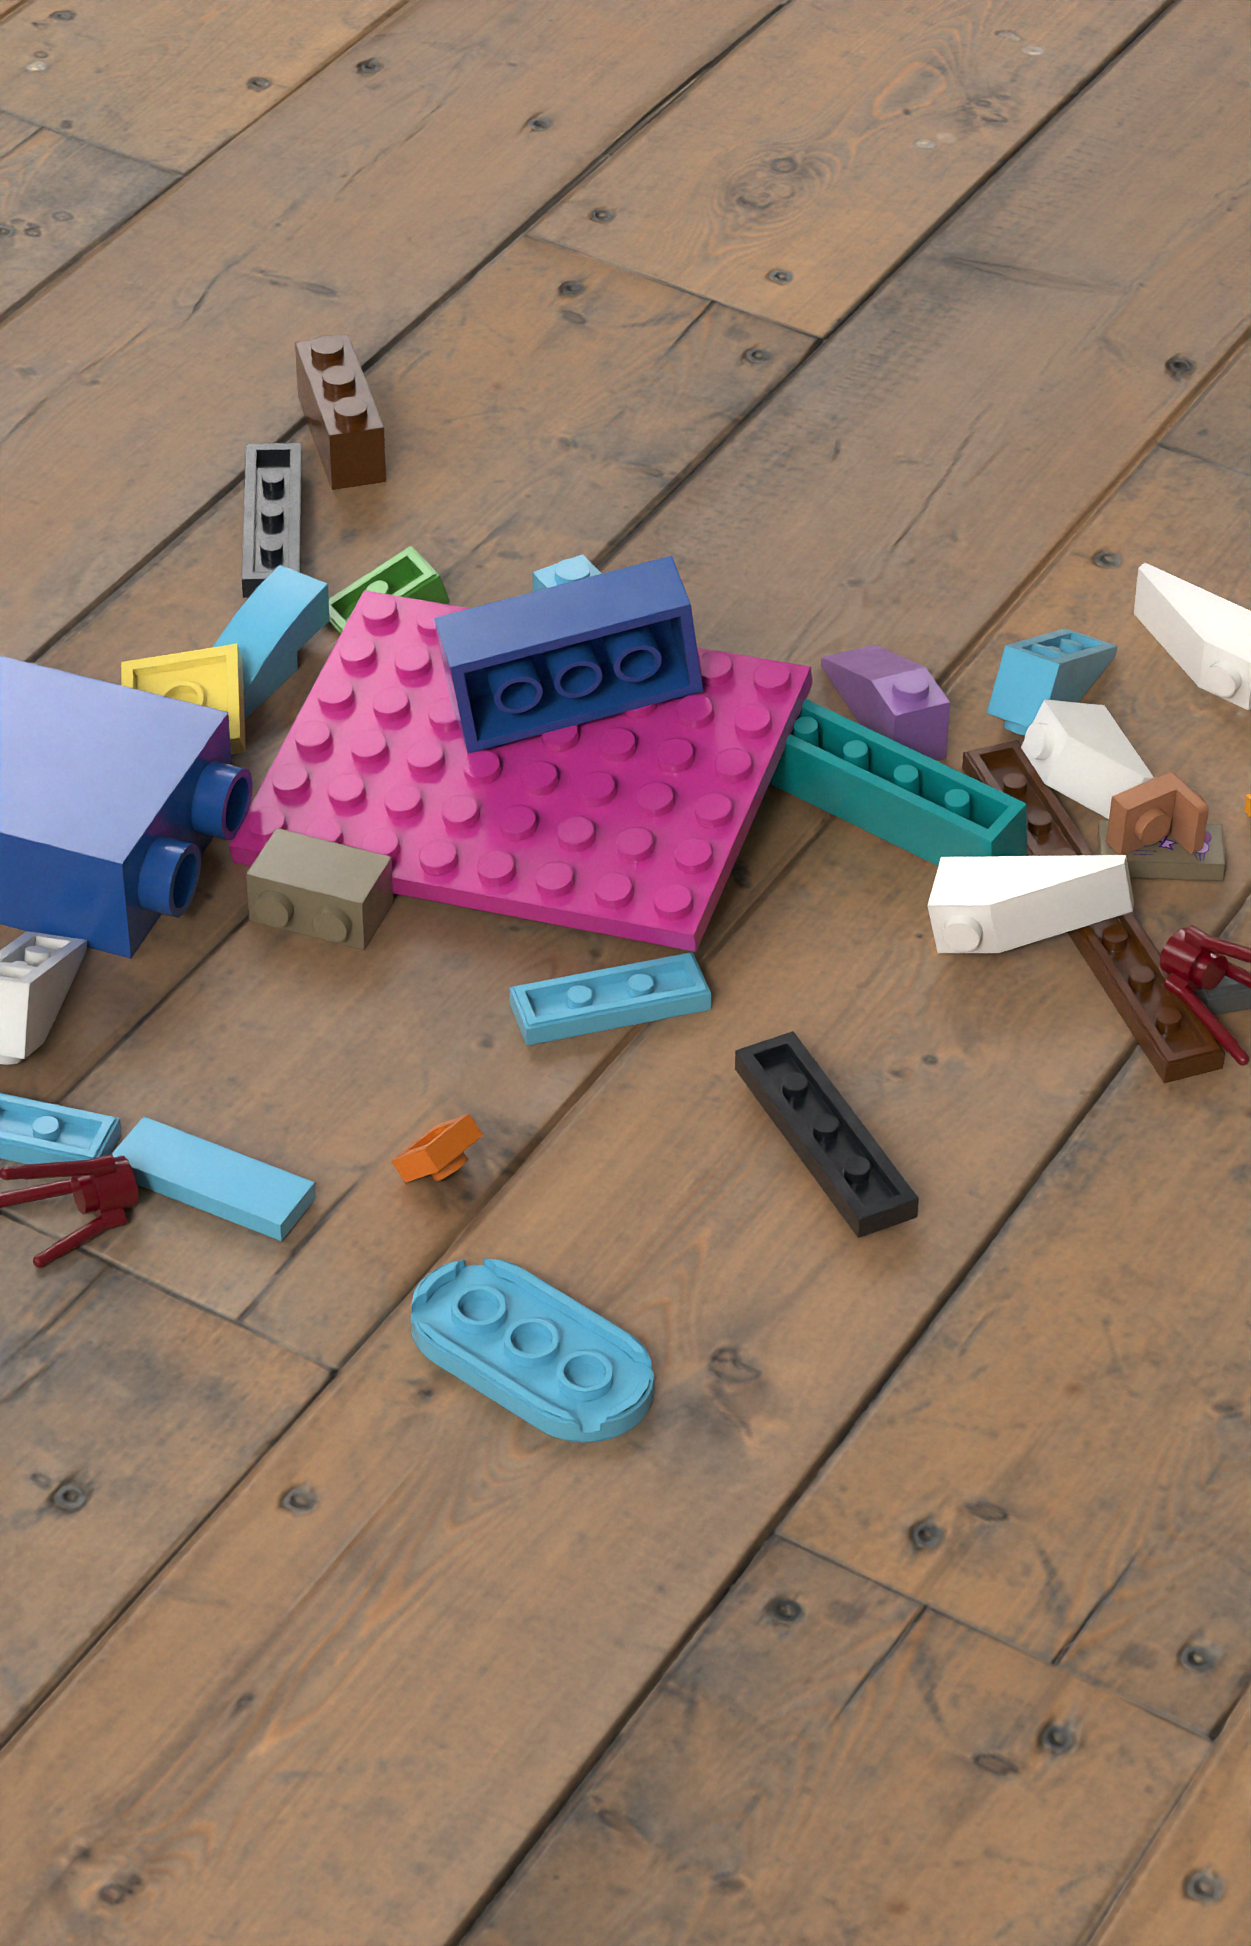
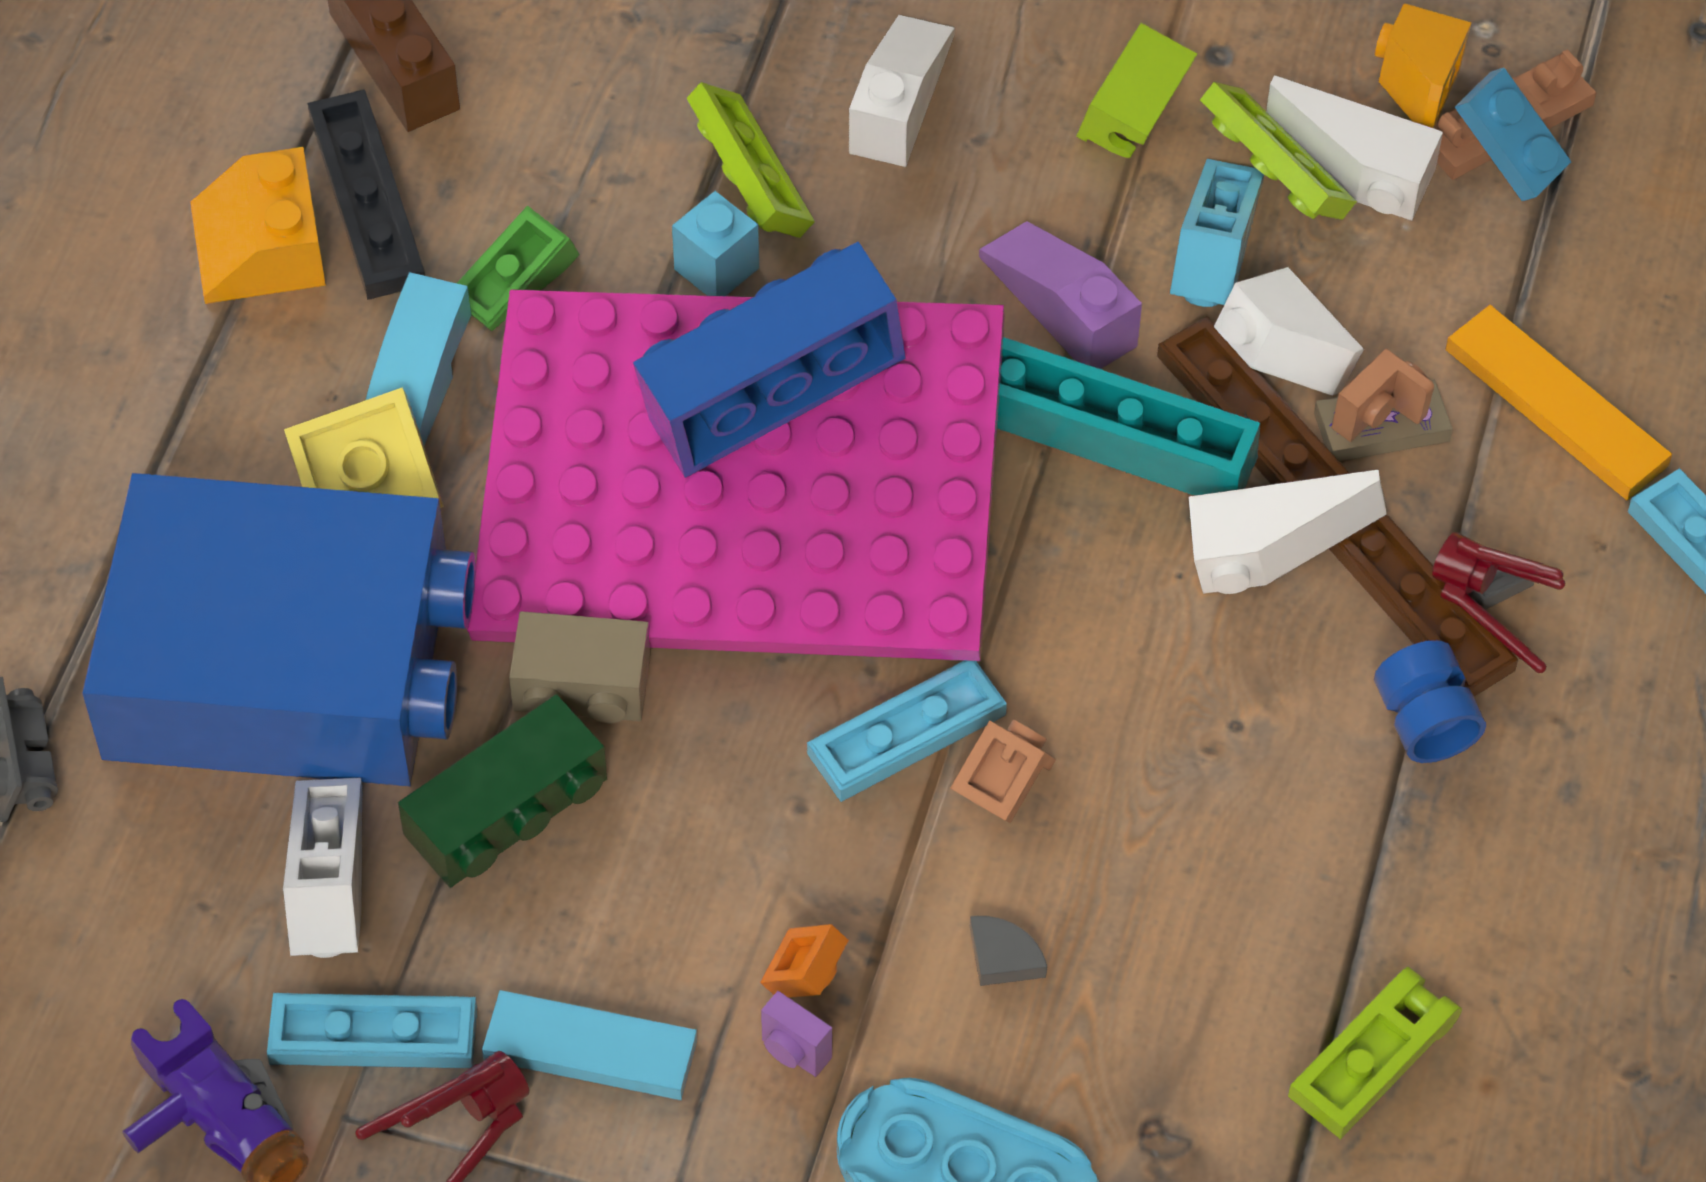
camera: 15 degrees left, 15 degrees up
(168, 526) = (258, 229): none -> light orange slope
(209, 966) = (503, 791): none -> dark green brick
(406, 1202) = (795, 1035): none -> medium lavender plate
(622, 528) = (749, 161): none -> lime plate
(634, 1184) = (1004, 952): none -> dark grey tile
(686, 1038) = (1003, 768): none -> nougat bracket
(785, 527) = (897, 90): none -> white slope
(826, 1134) = (1171, 850): black plate -> none
(964, 1329) = (1373, 1053): none -> lime plate
(1010, 559) = (1136, 91): none -> lime hinge
(1121, 1062) = (1433, 706): none -> blue wheel
(1131, 630) = (1276, 152): none -> lime plate

